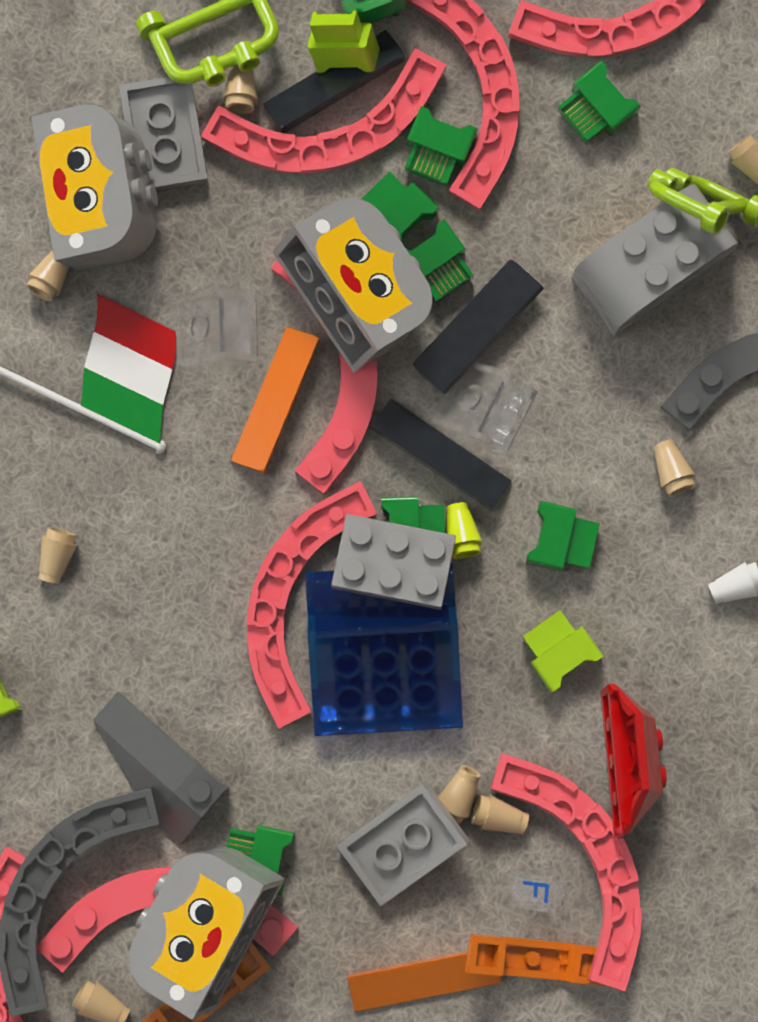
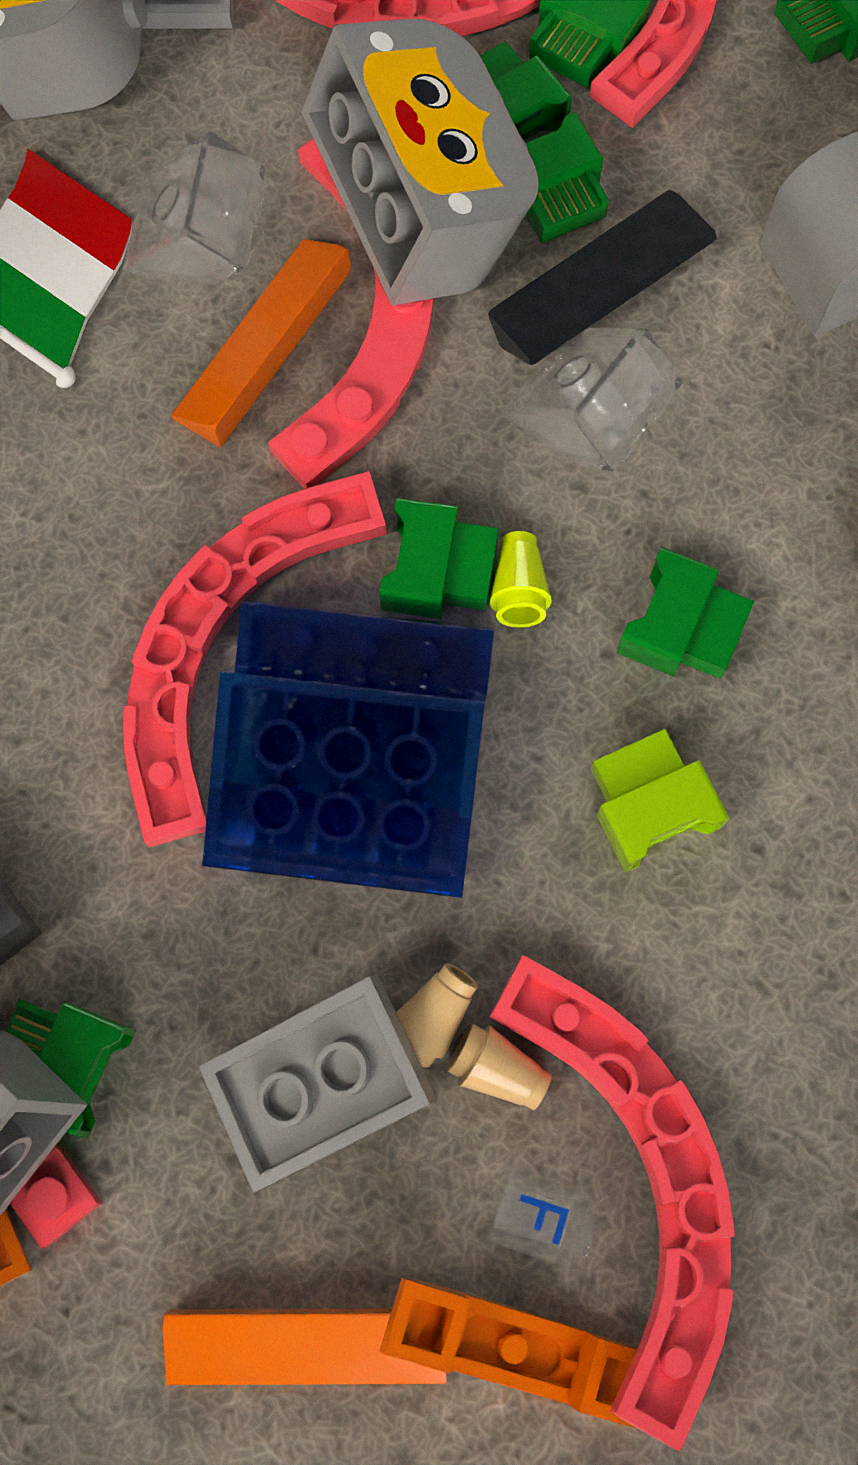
camera: 10 degrees right, 10 degrees down
(393, 561) = (395, 594): light grey plate -> none
(440, 454) = (507, 462): black slope -> none
(631, 758) = (754, 1007): red wedge -> none

